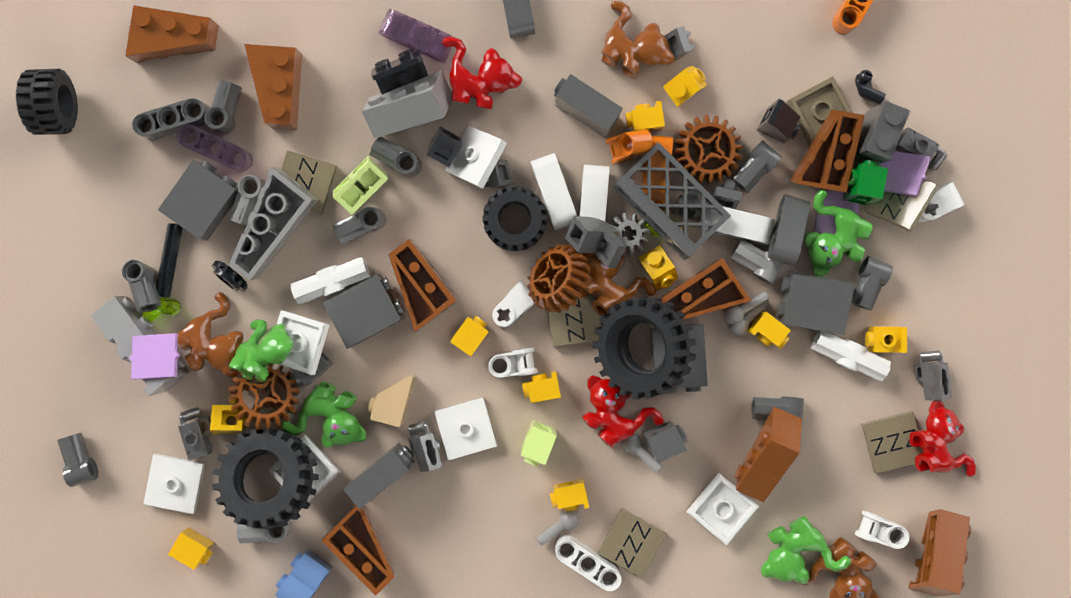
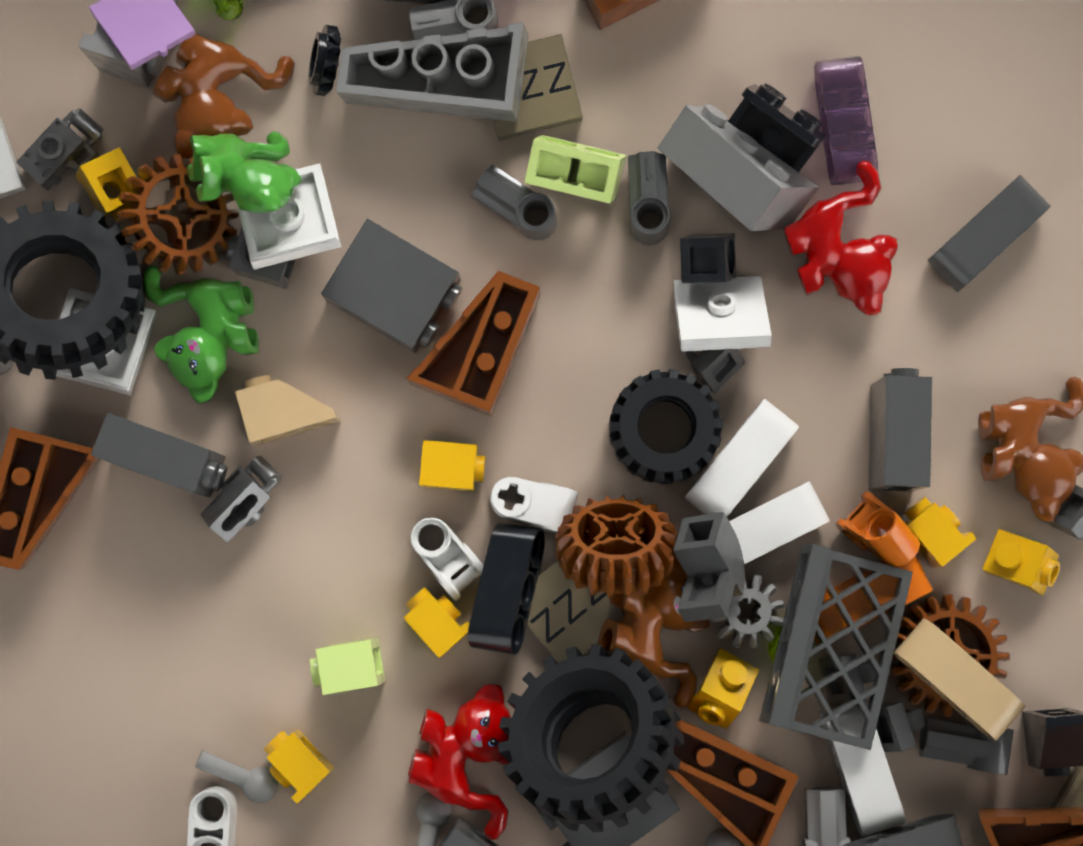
camera: 65 degrees right, 5 degrees down
(330, 280) = (407, 210): white piece -> none
(465, 428) = (306, 544): white plate -> none
(546, 344) = (506, 588): none -> black beam
(723, 151) = (959, 679): none -> tan beam

